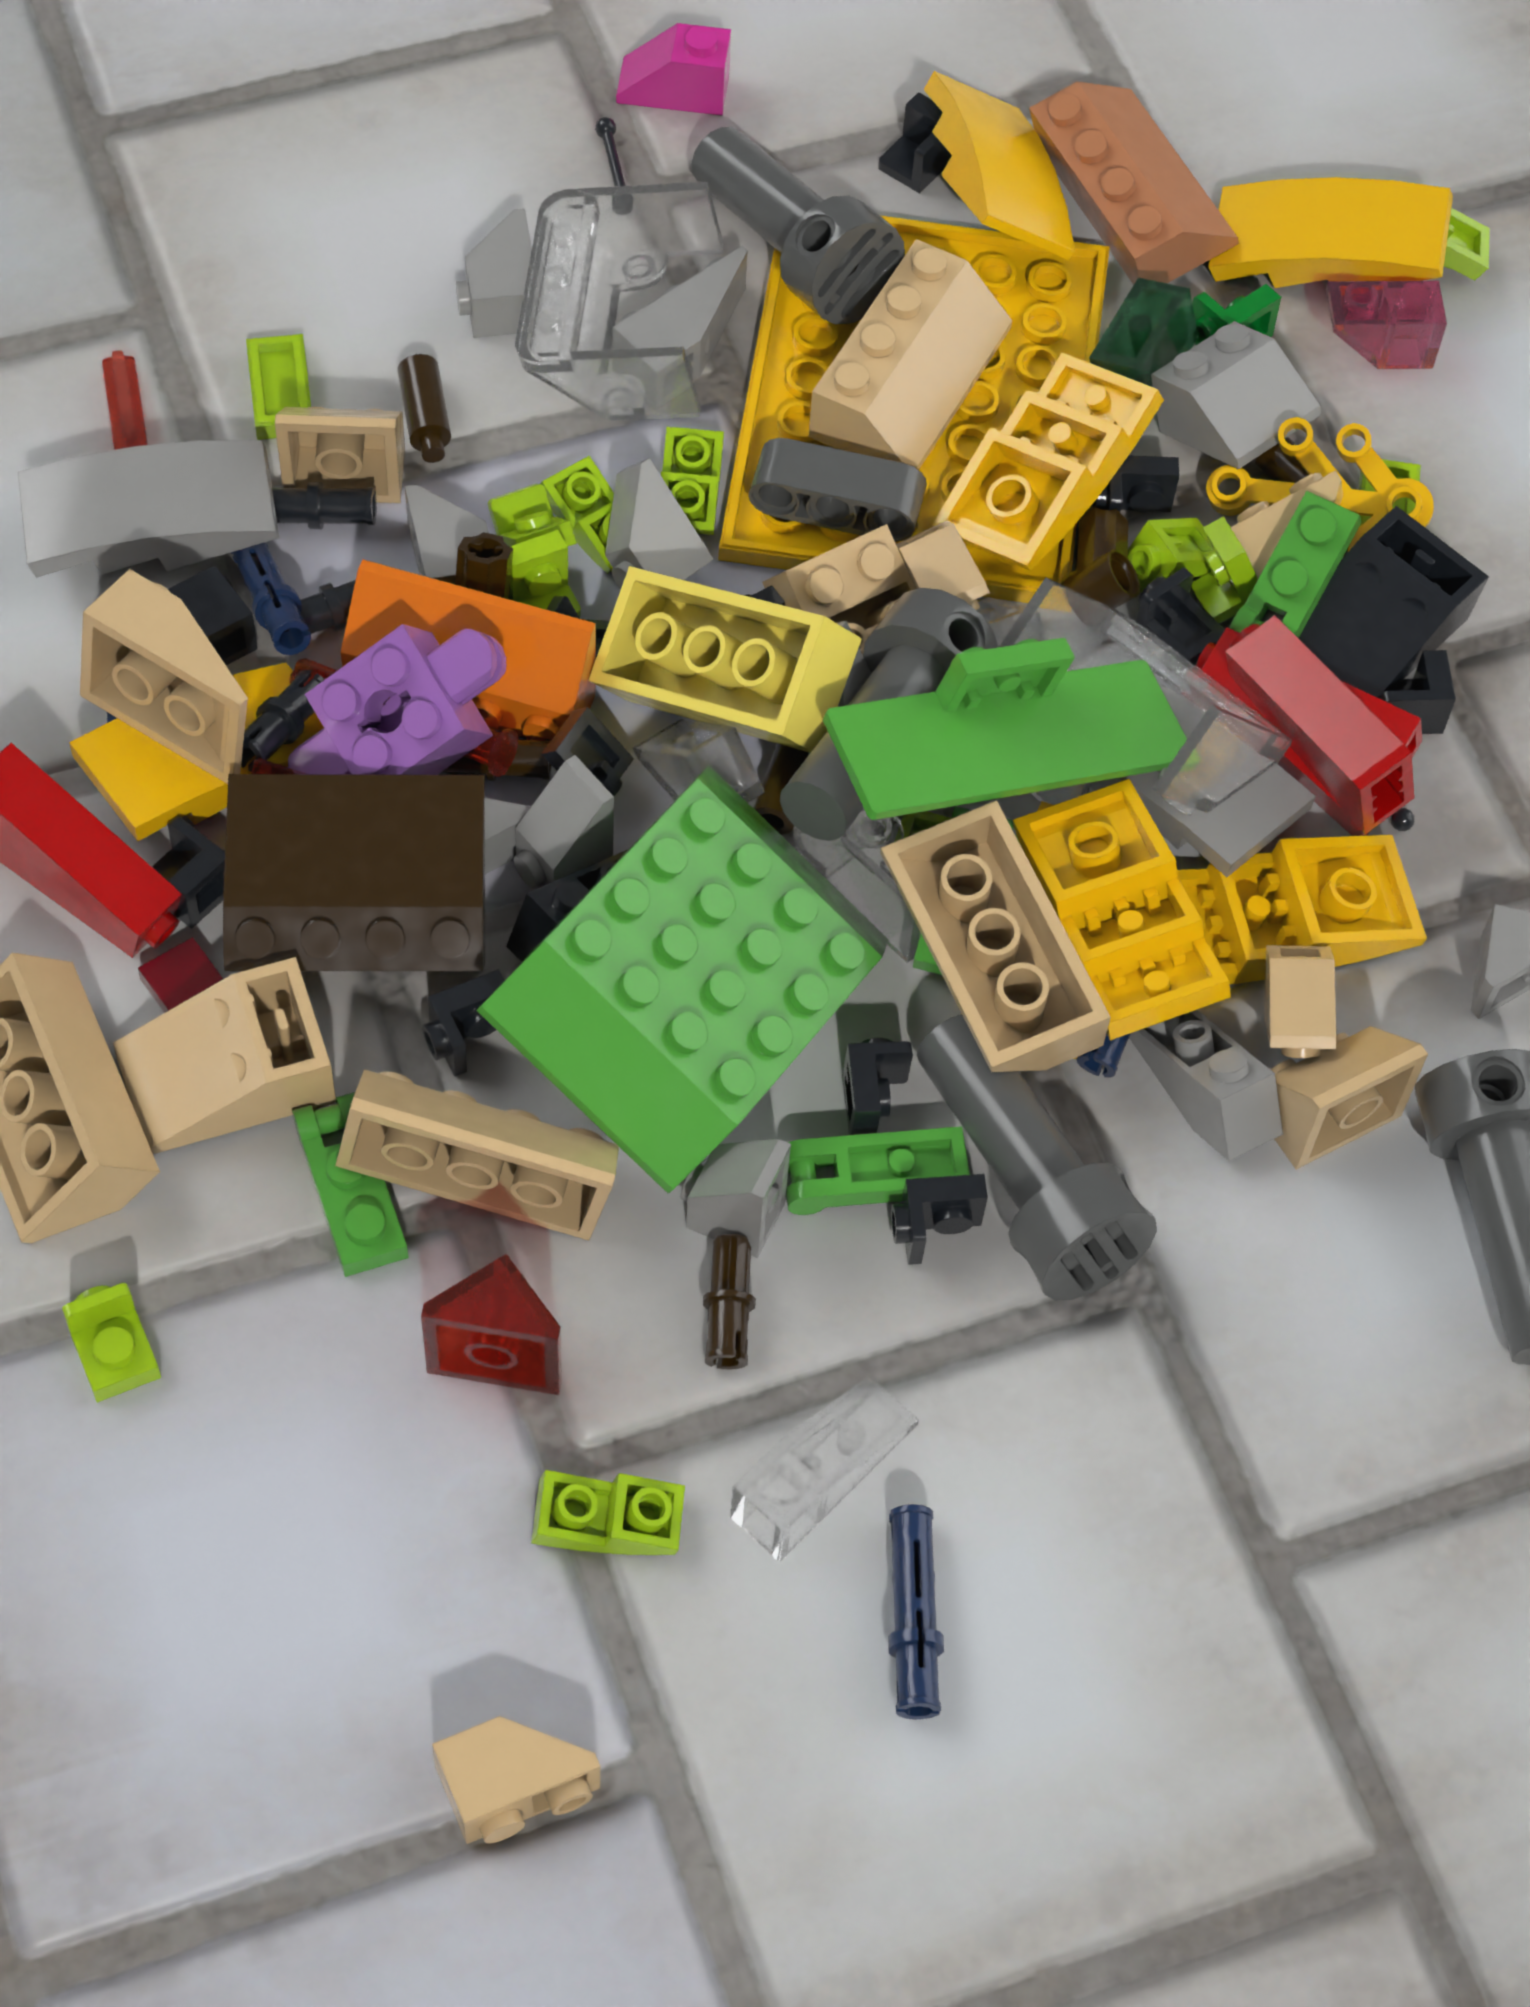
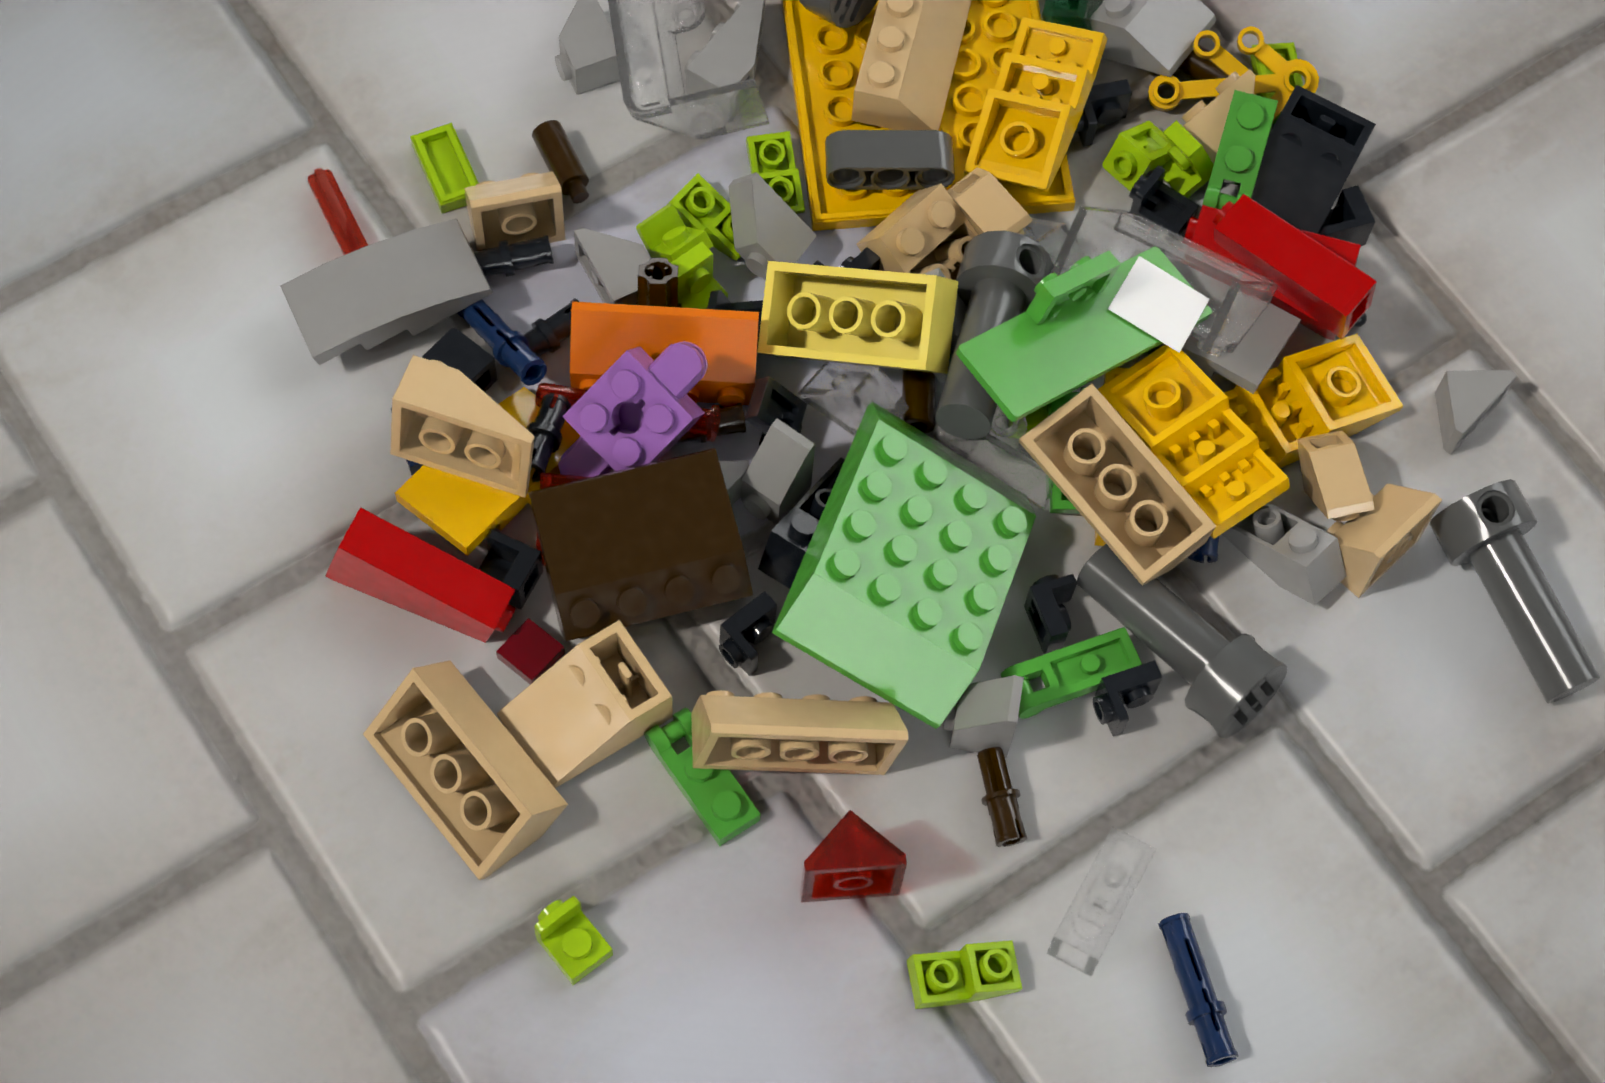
camera: 15 degrees left, 5 degrees up
(1102, 559) = (1095, 177): dark brown piece -> none
(1122, 728) = (1158, 304): none -> white sticker

